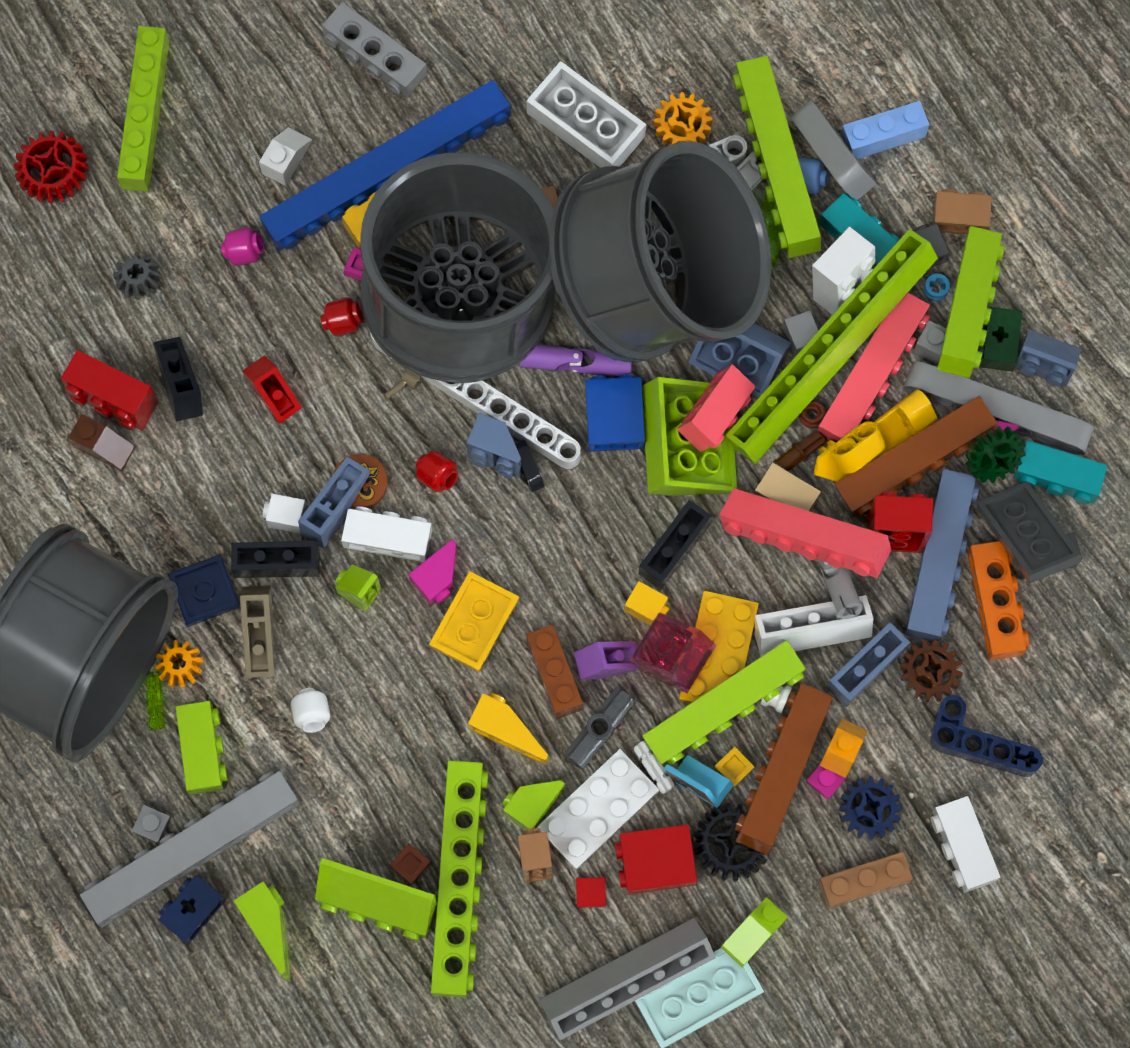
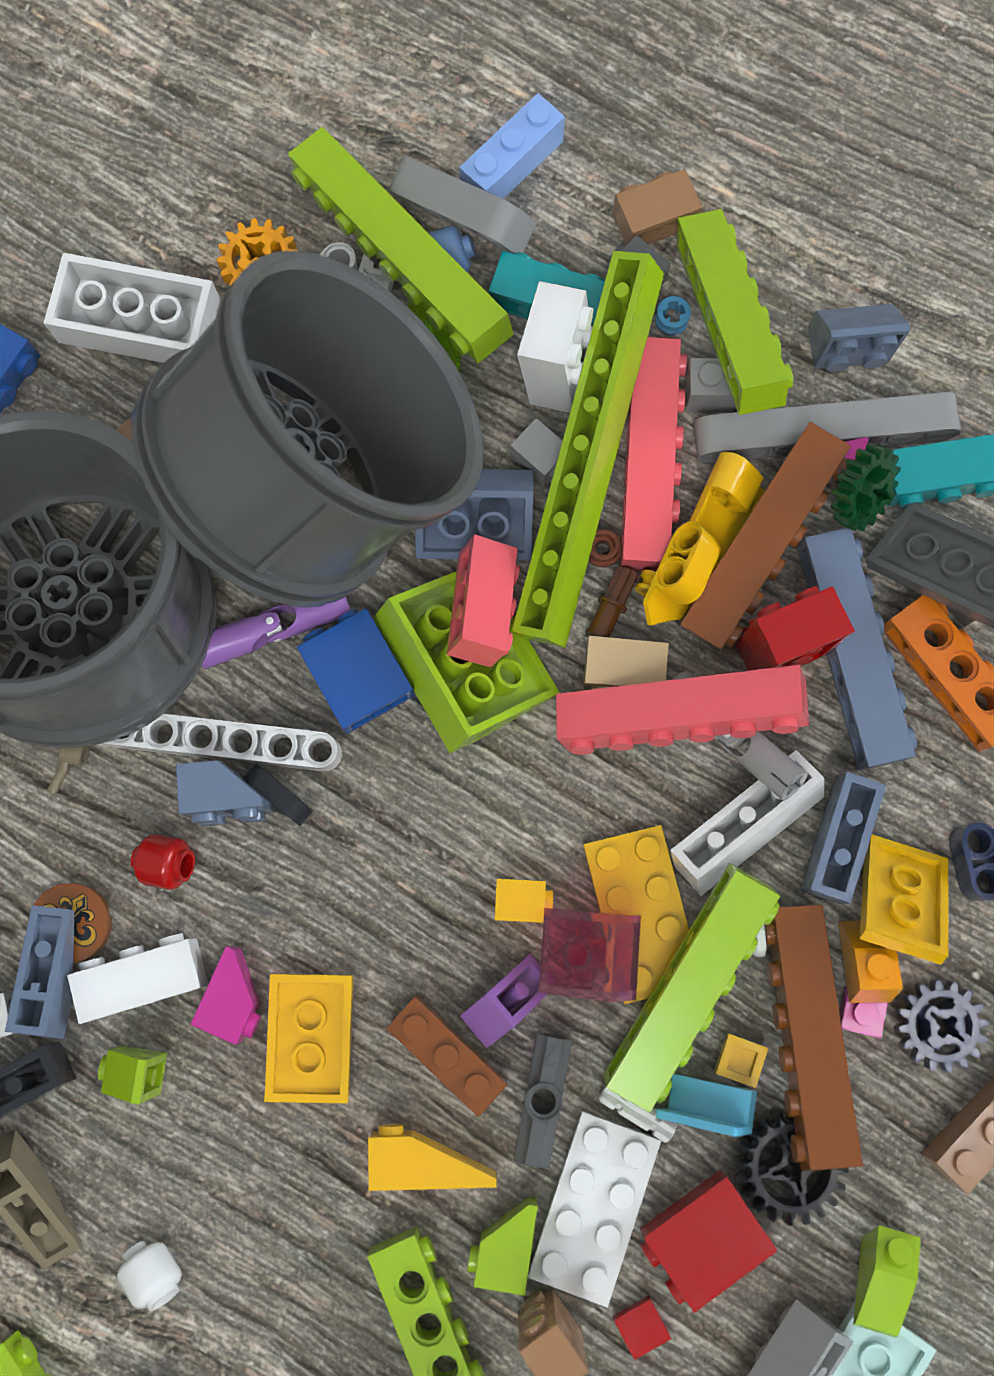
camera: 25 degrees left, 5 degrees up
(675, 544) = (519, 805): black brick -> none
(886, 717) = (905, 900): none -> yellow plate
(934, 682) = (933, 813): reddish brown gear -> none
(1002, 355) = (793, 327): dark green brick -> none

